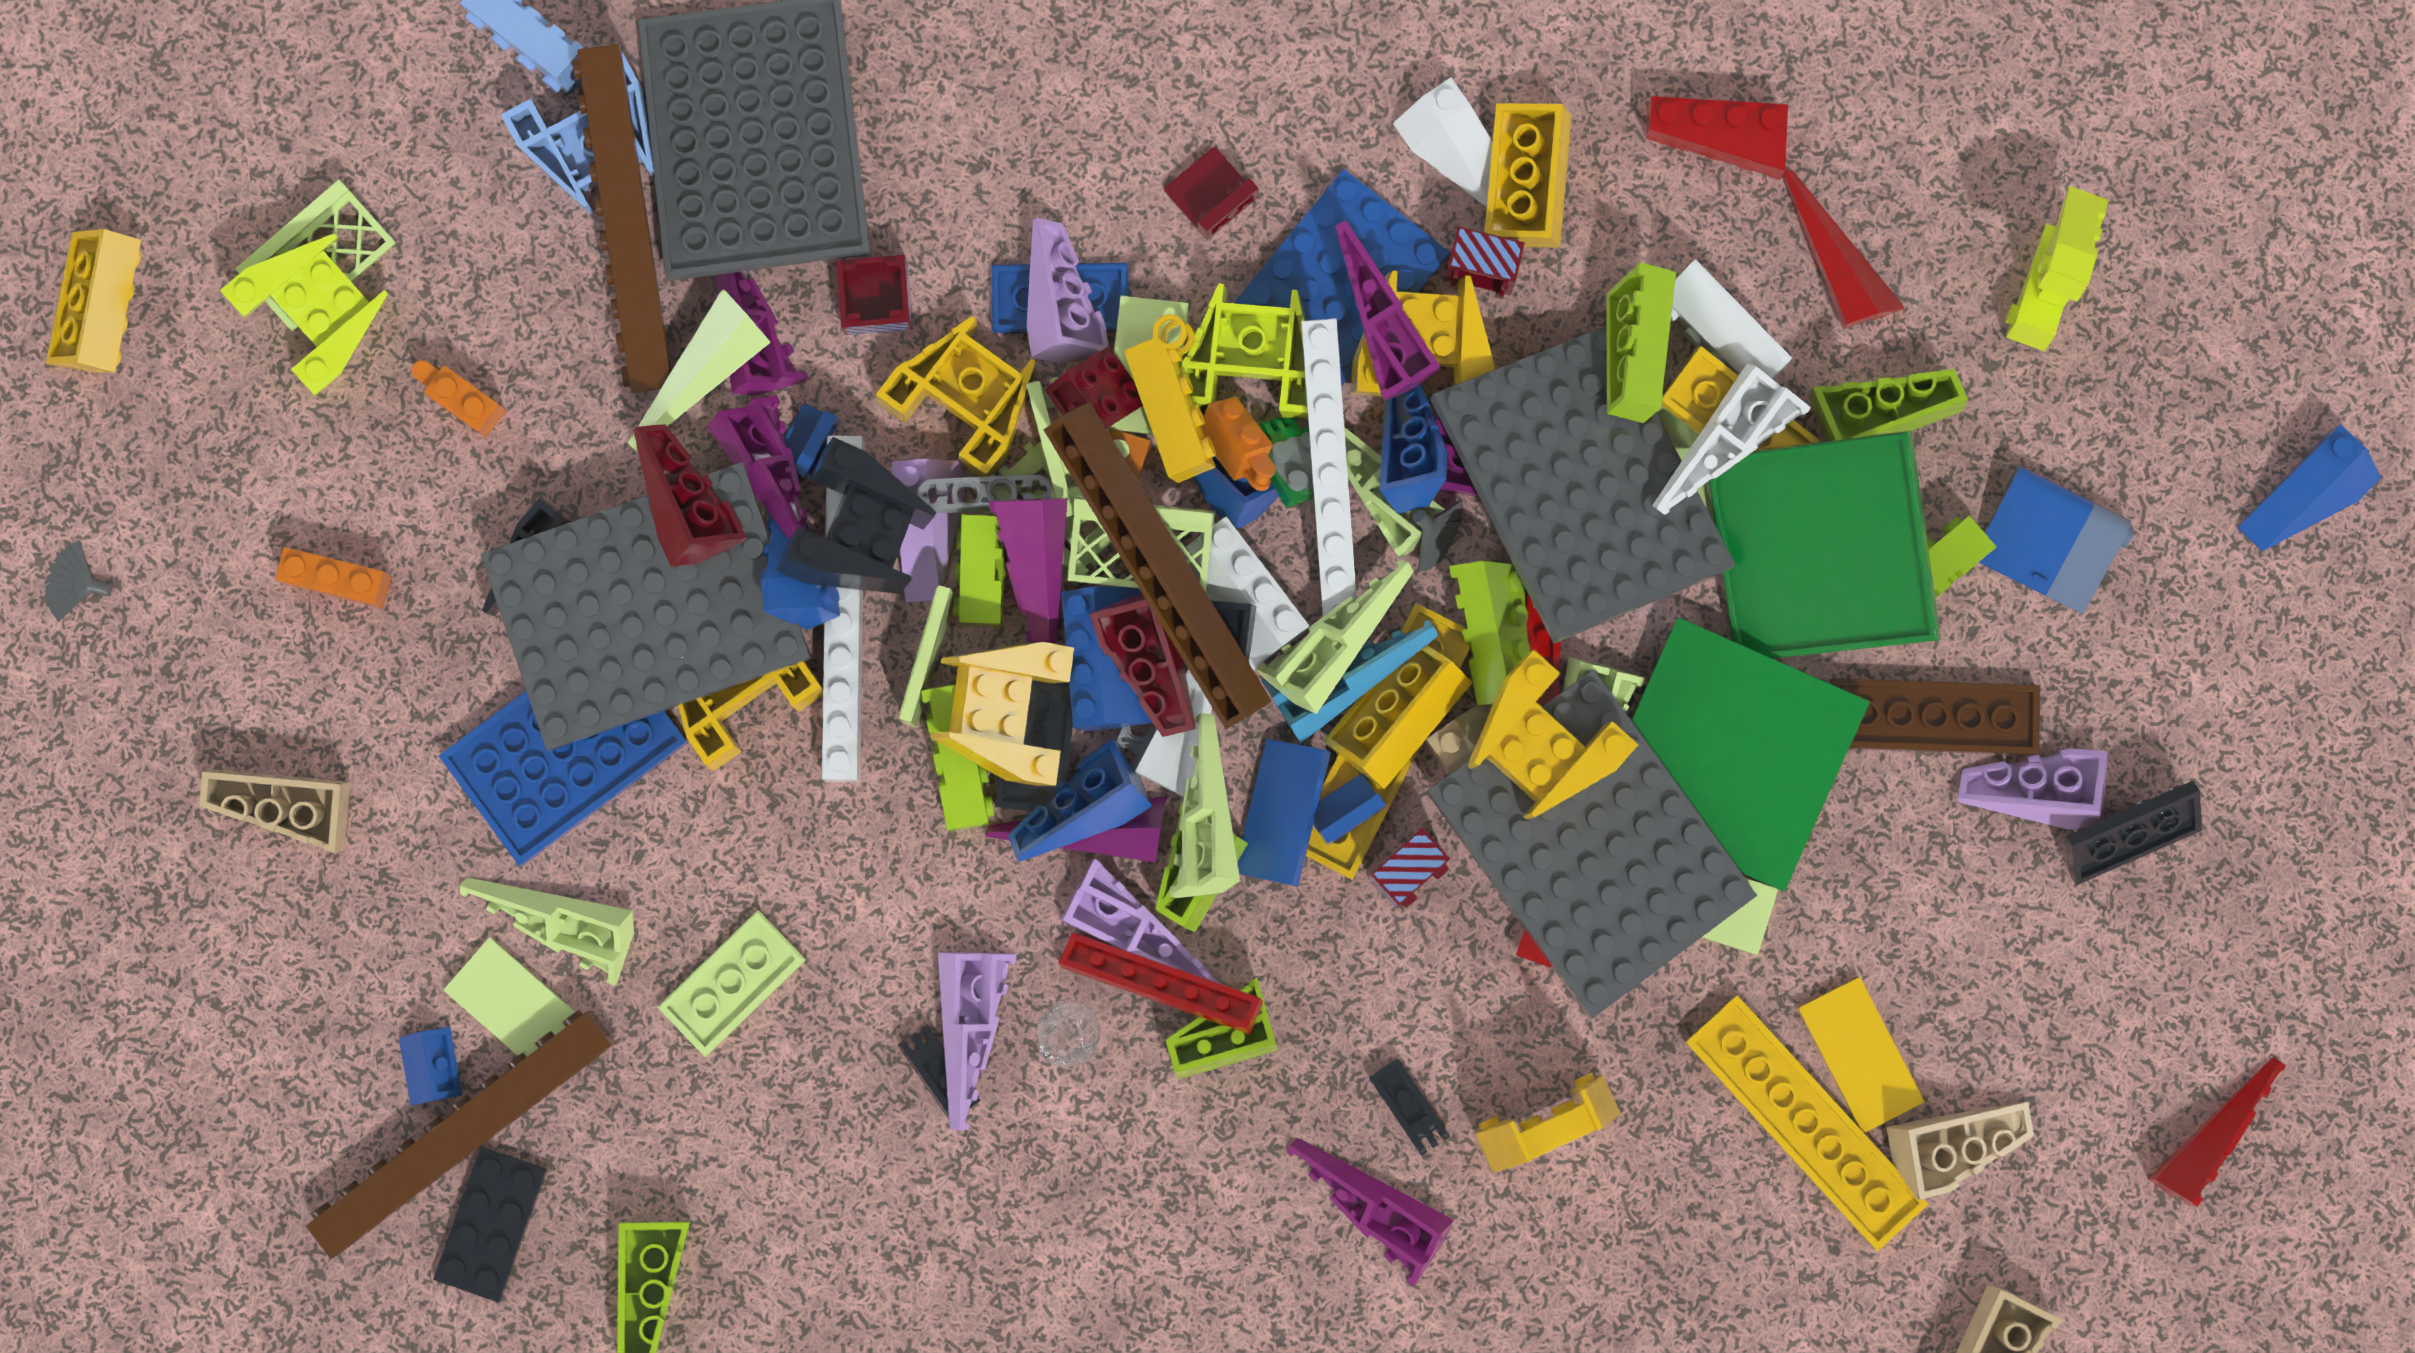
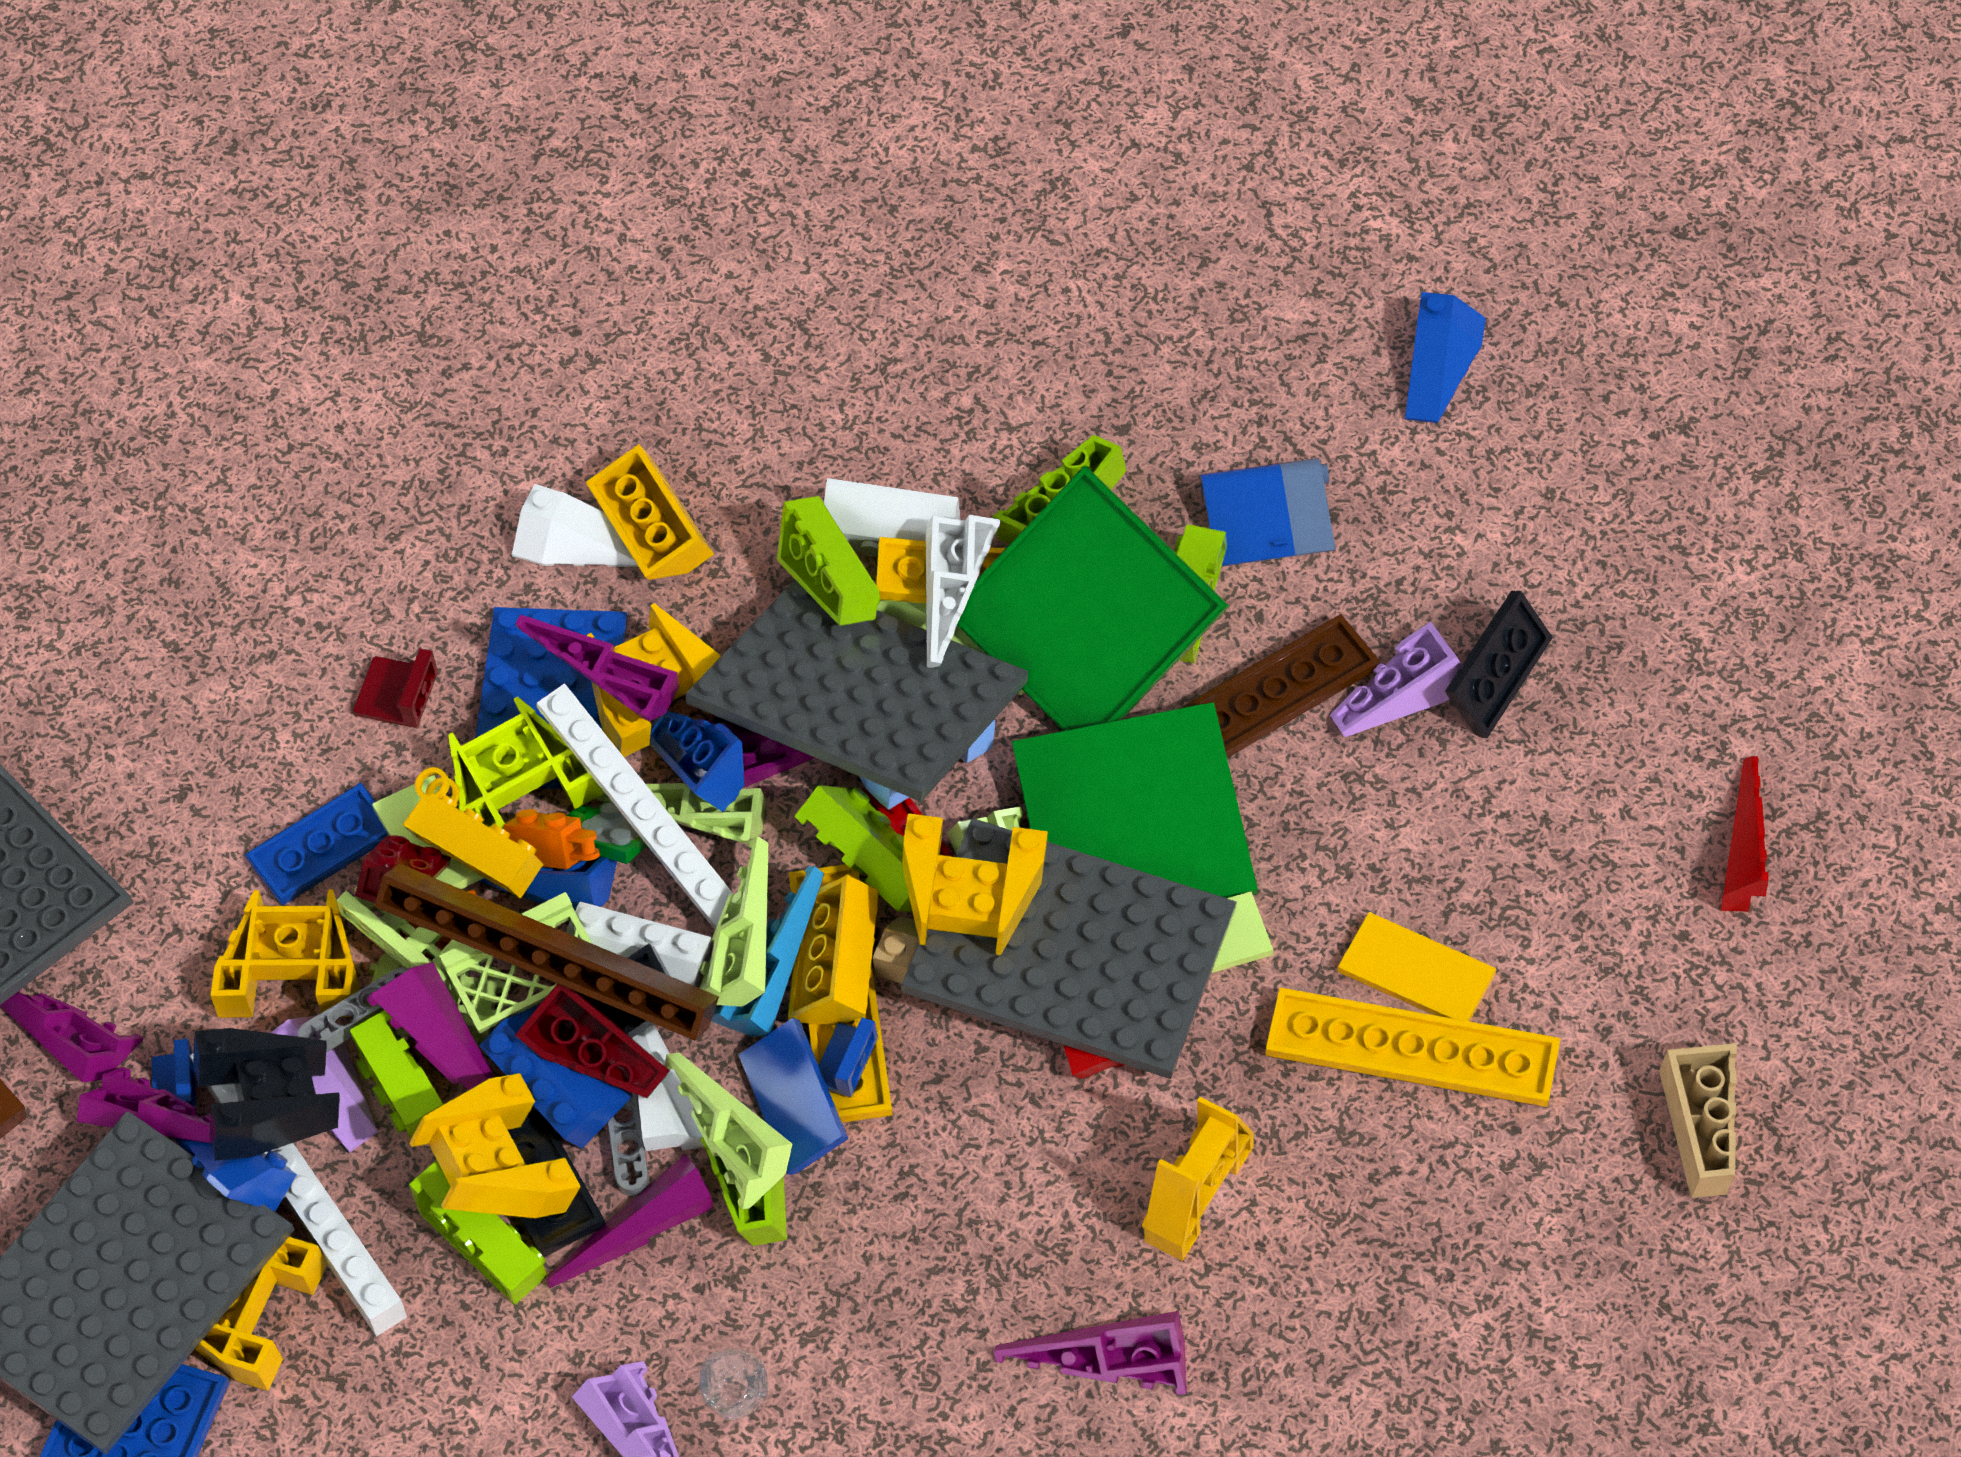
camera: 35 degrees left, 25 degrees down
(684, 508) = (99, 1171): dark red wedge -> none
(717, 350) = (46, 1044): yellowish green wedge -> none
(874, 295) = (158, 933): dark red container -> none
(927, 655) = (396, 1169): yellowish green tile -> none
(1059, 310) = (318, 838): lavender wedge -> none
(1093, 801) = (626, 1177): blue wedge -> none
(1113, 915) = (710, 1272): lavender wedge -> none
(1161, 983) = (784, 1286): red plate -> none
(1210, 1045) = (873, 1296): lime wedge -> none
(1408, 1105) = (1072, 1252): black hinge -> none
(1410, 869) = (933, 1064): container -> none
(1437, 534) = (769, 810): dark grey hand -> none
(1486, 258) = (662, 582): dark red container -> none
(1723, 130) = (782, 396): red wedge -> none
(1851, 281) = (968, 438): red wedge -> none
(1947, 1149) = (1546, 981): tan wedge -> none
(2058, 269) = (1120, 322): neon yellow wedge -> none

